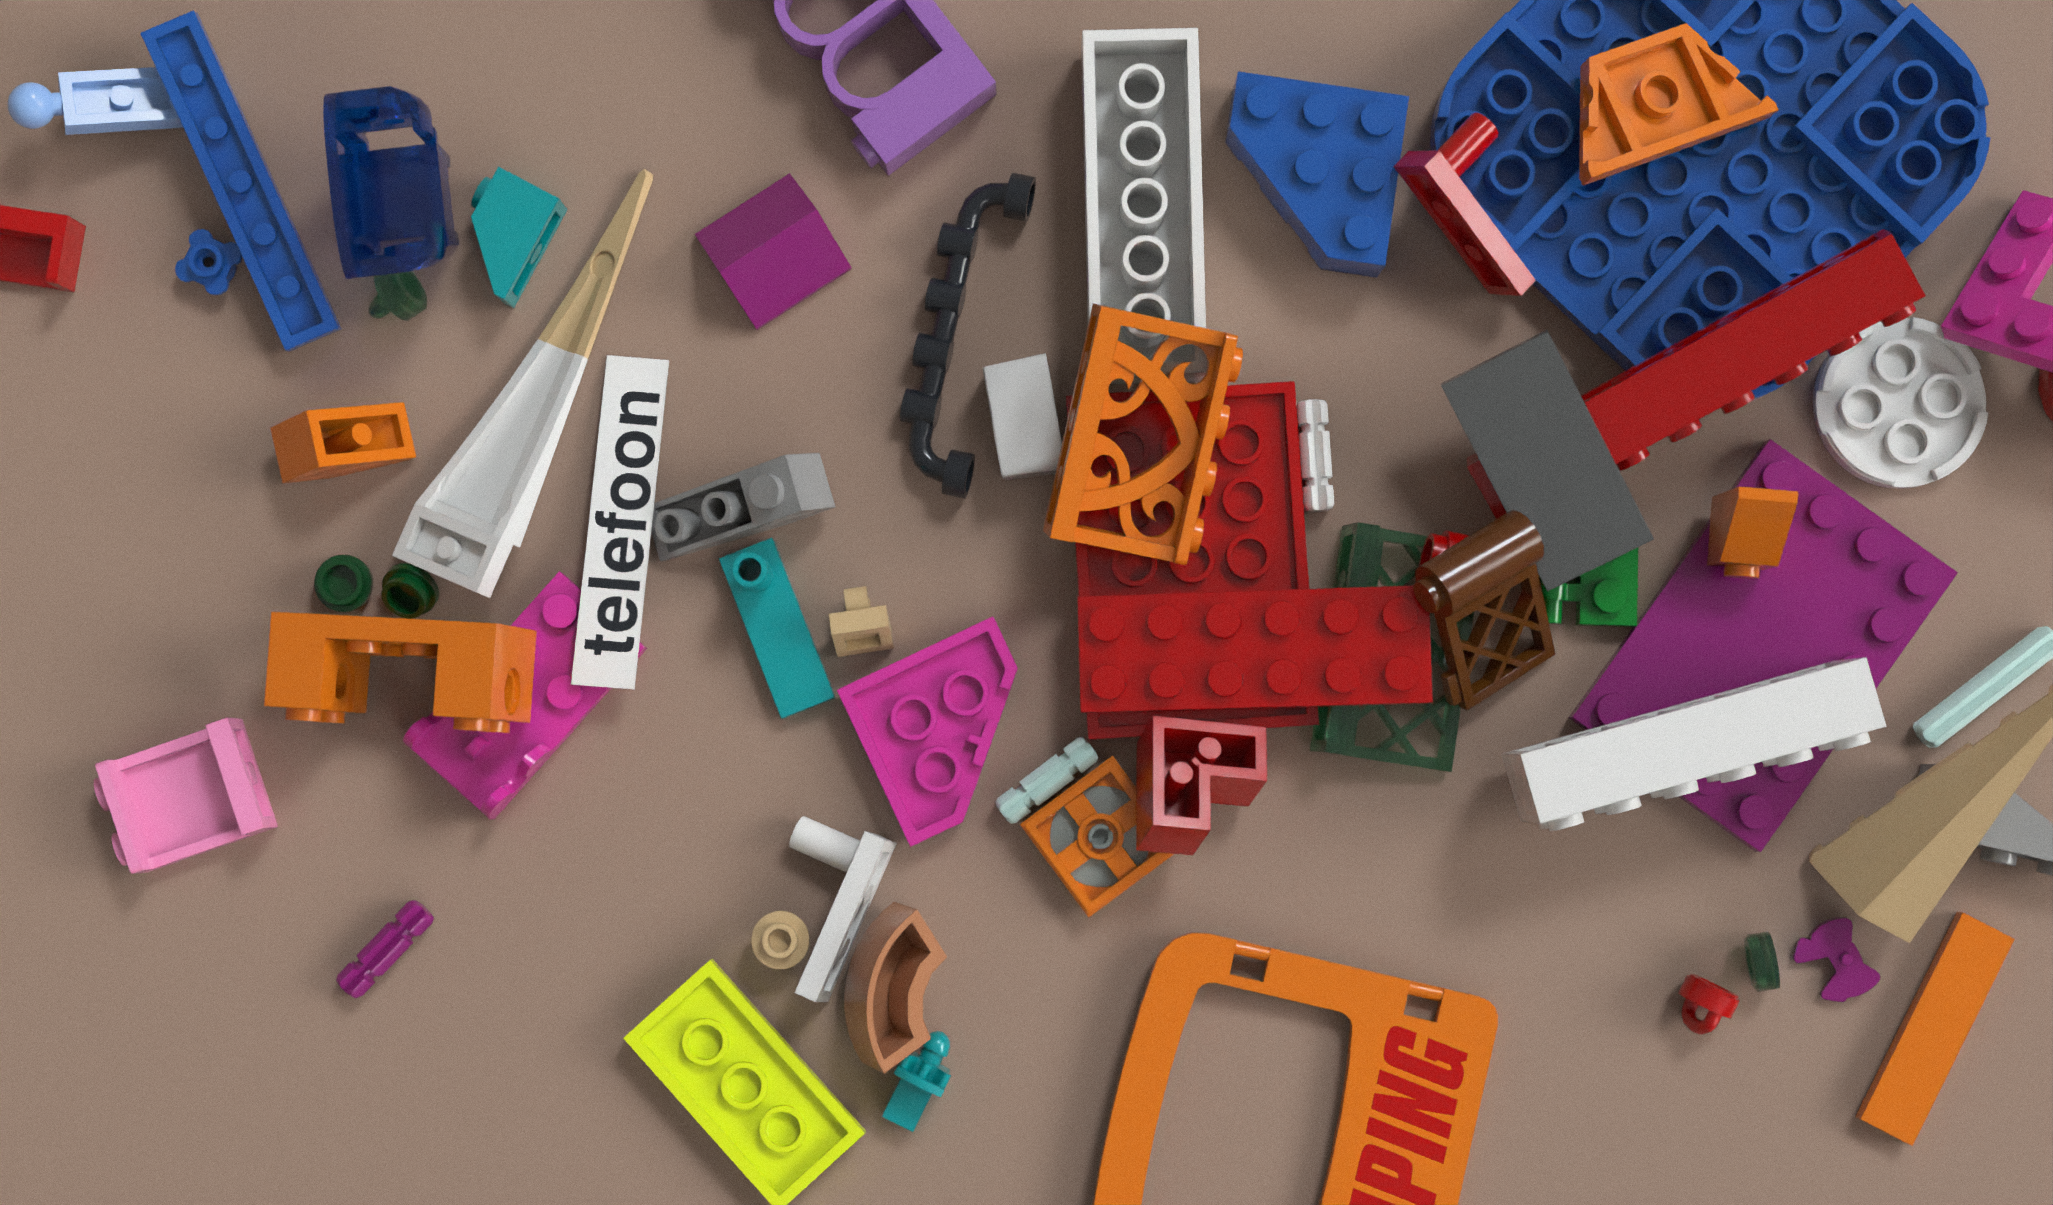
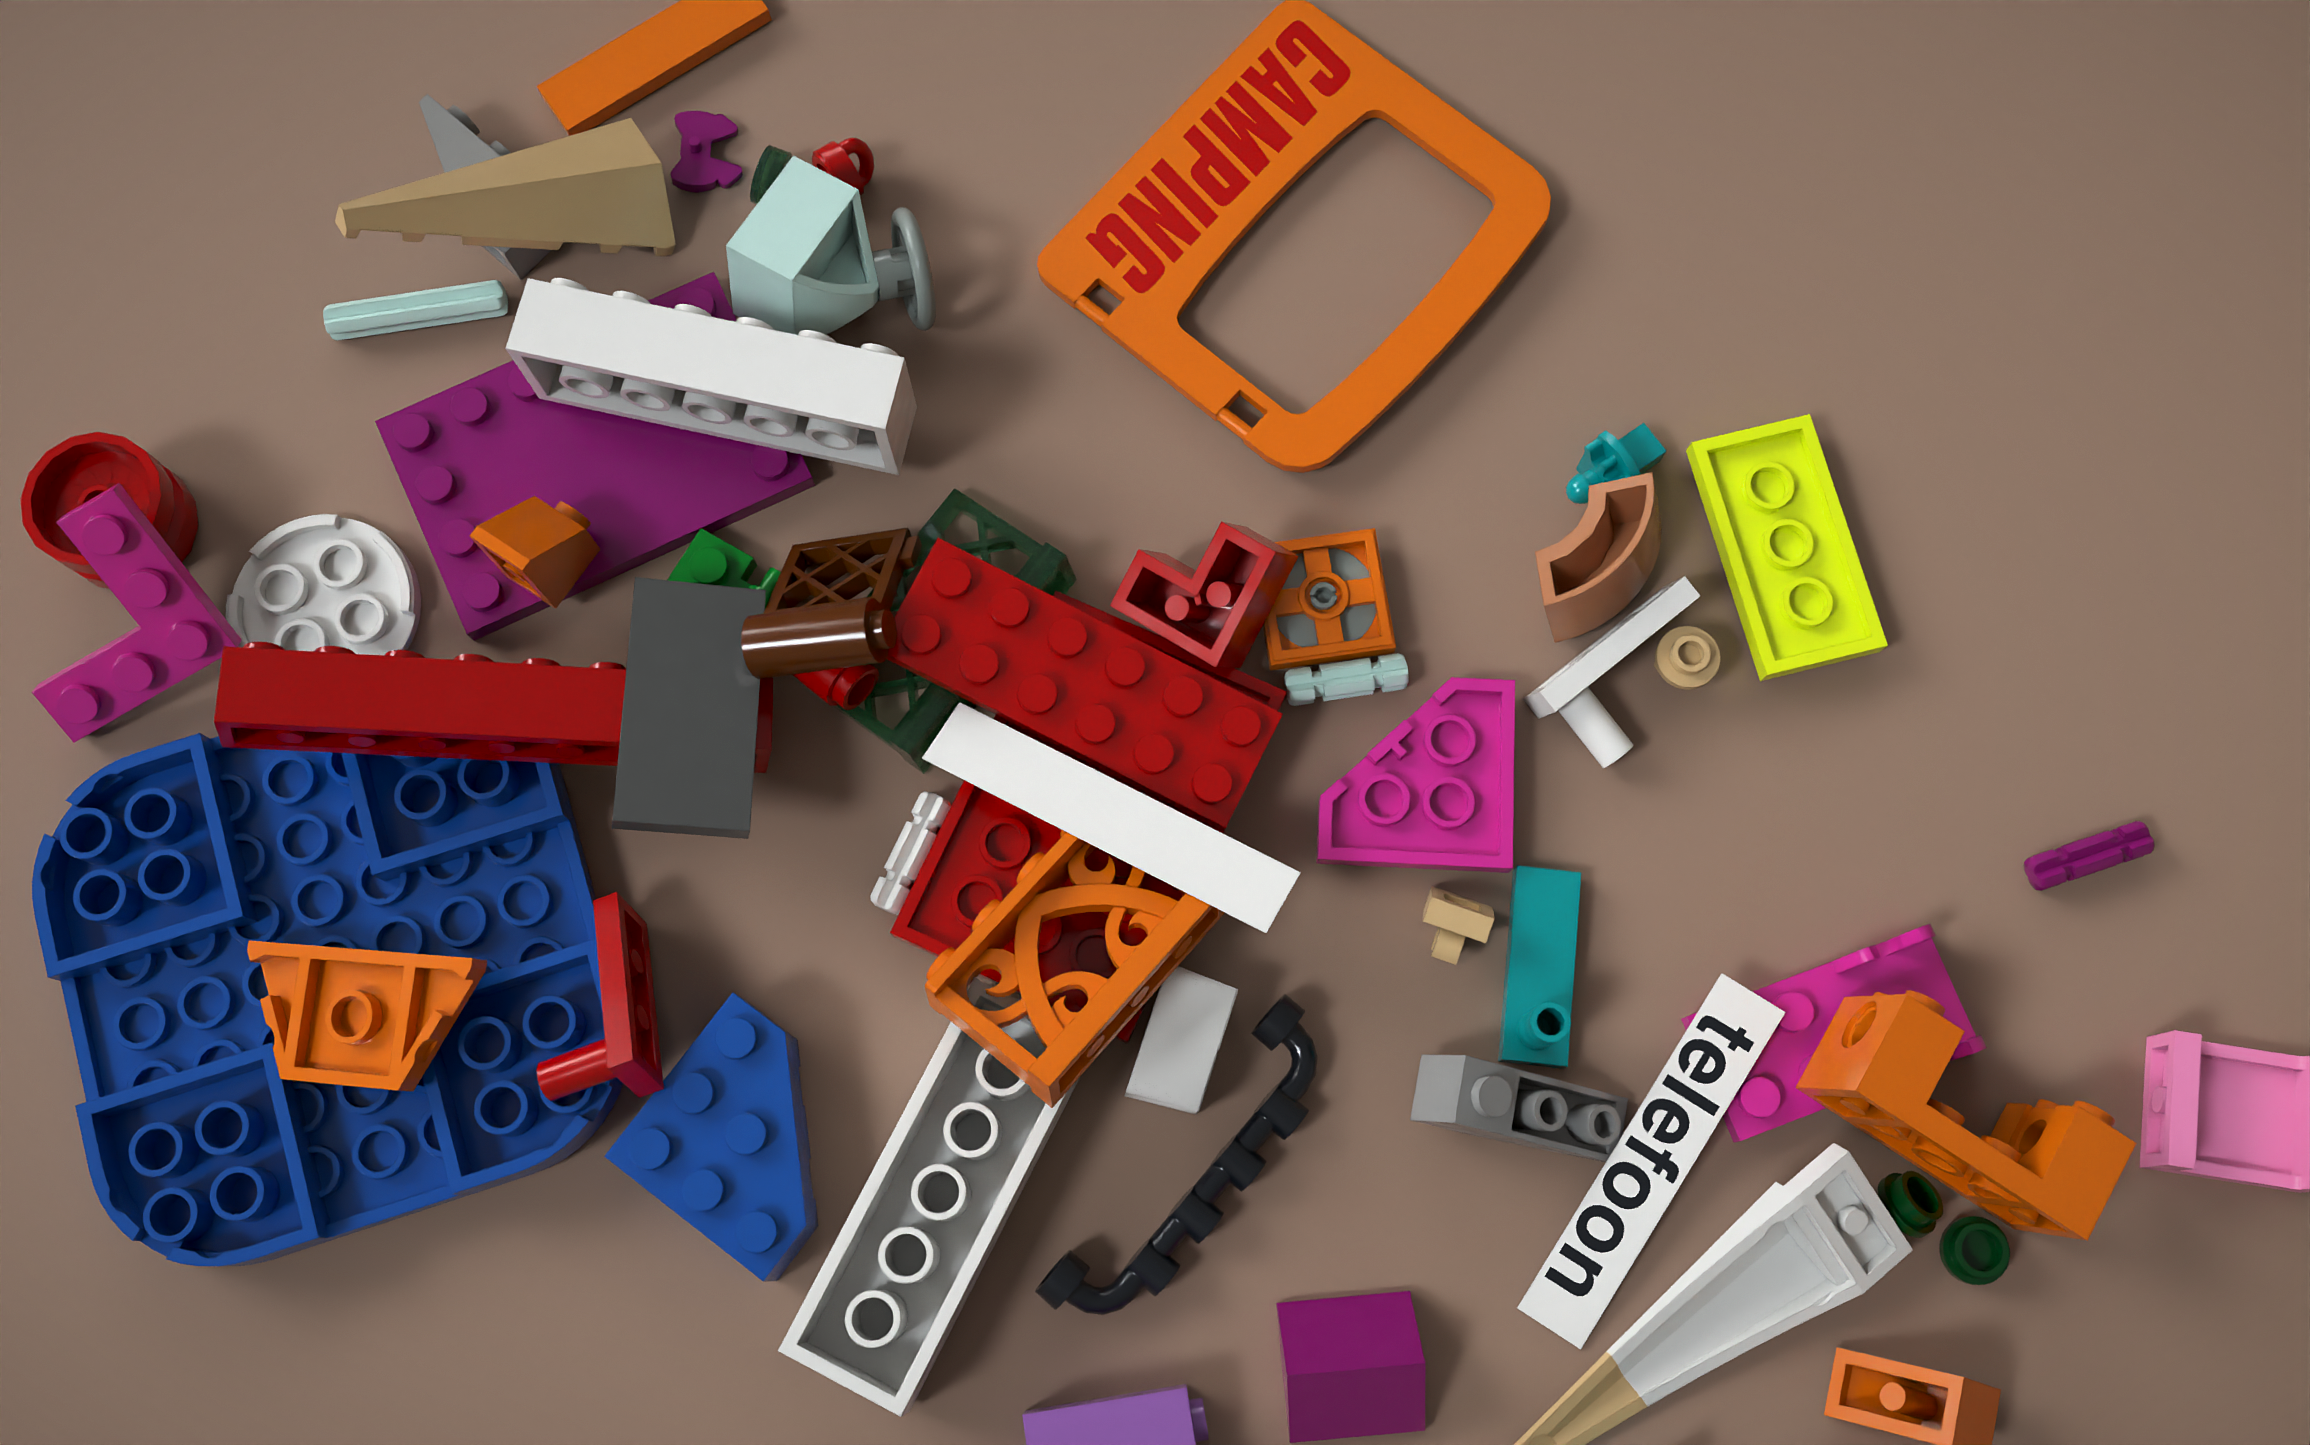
camera: 150 degrees left, 10 degrees down
(1170, 548) = (1113, 817): none -> white sticker
(1676, 888) = (809, 258): none -> light aqua piece

